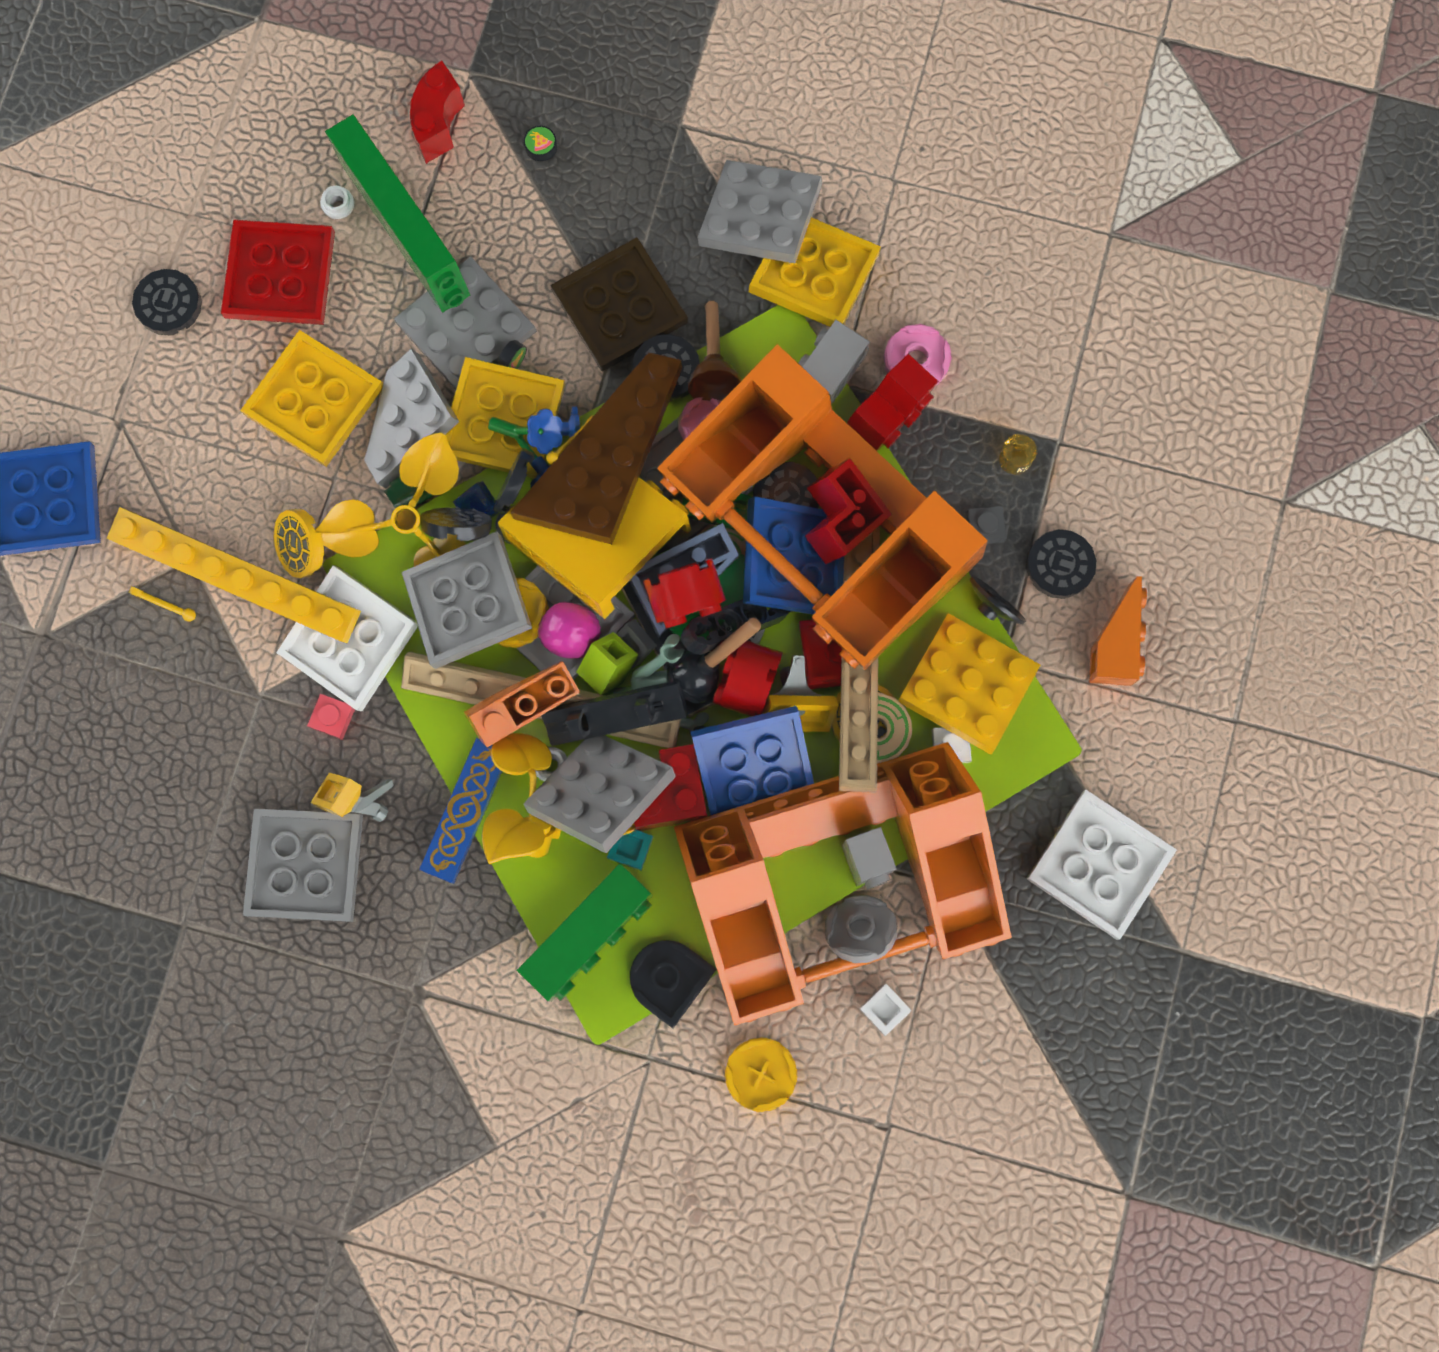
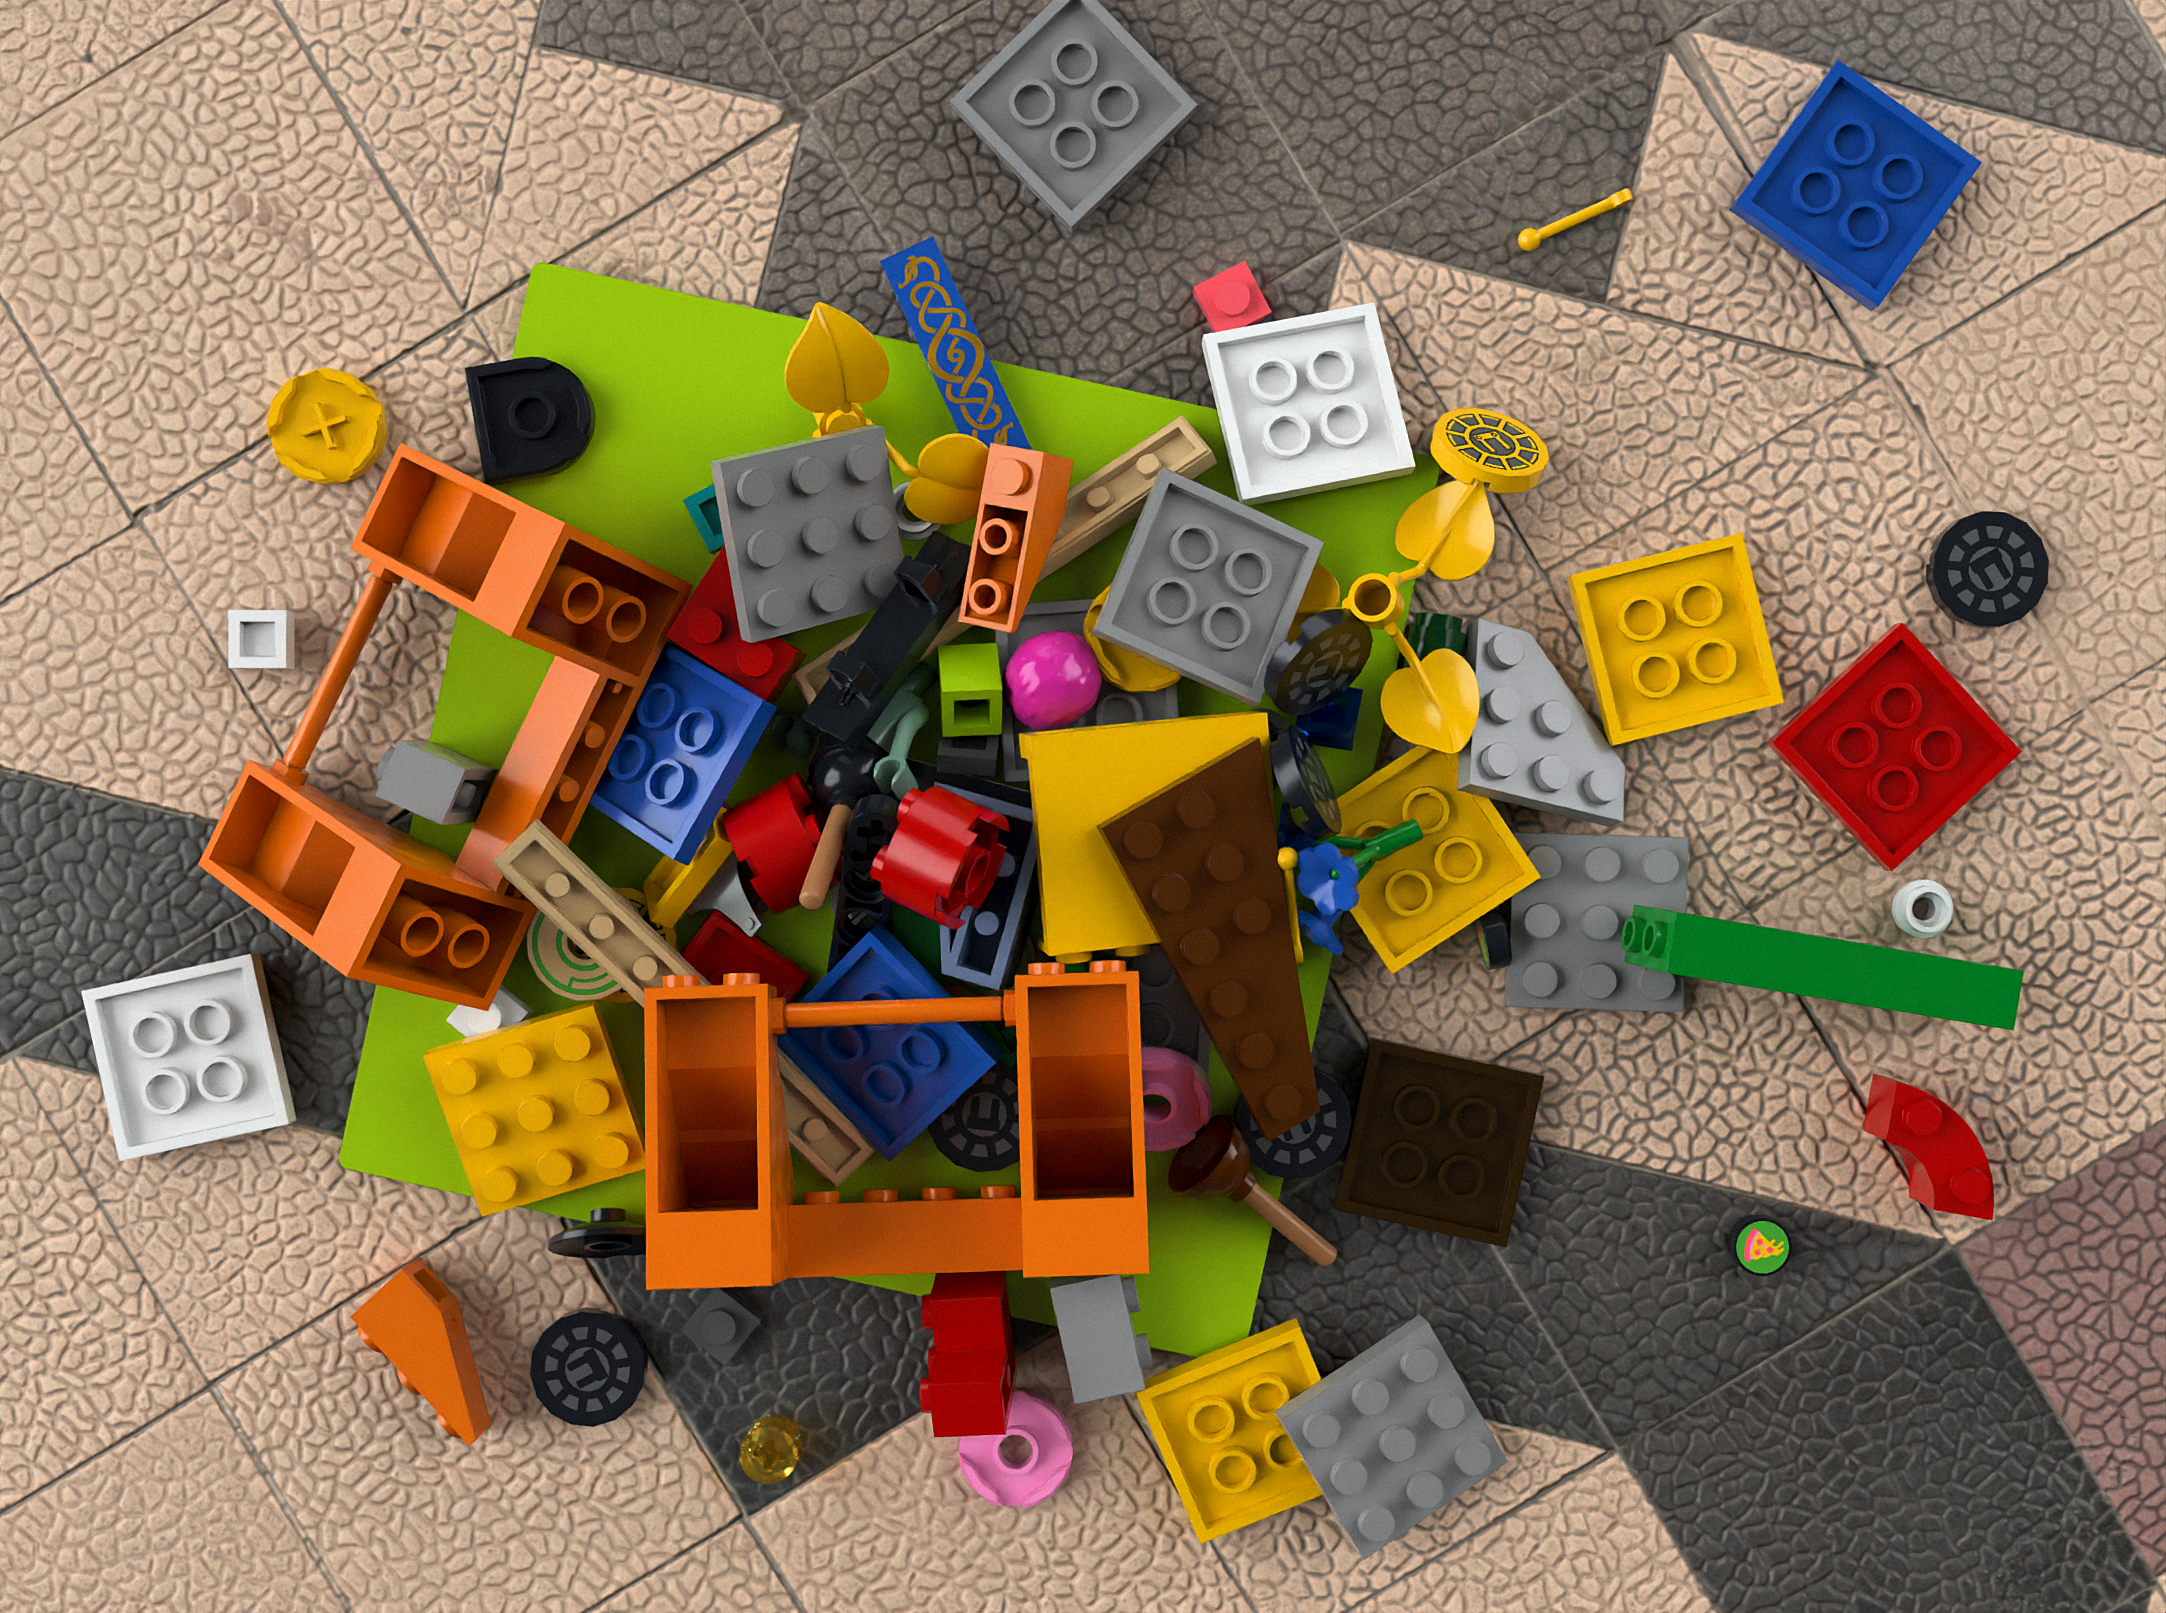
camera: 130 degrees right, 10 degrees up
(234, 575) = (1523, 334): yellow plate -> none
(343, 795) = (1102, 219): yellow piece -> none
(584, 934) = (664, 363): green brick -> none
(850, 508) = (869, 1166): red brick -> none
(861, 929) = (374, 697): light grey tile -> none

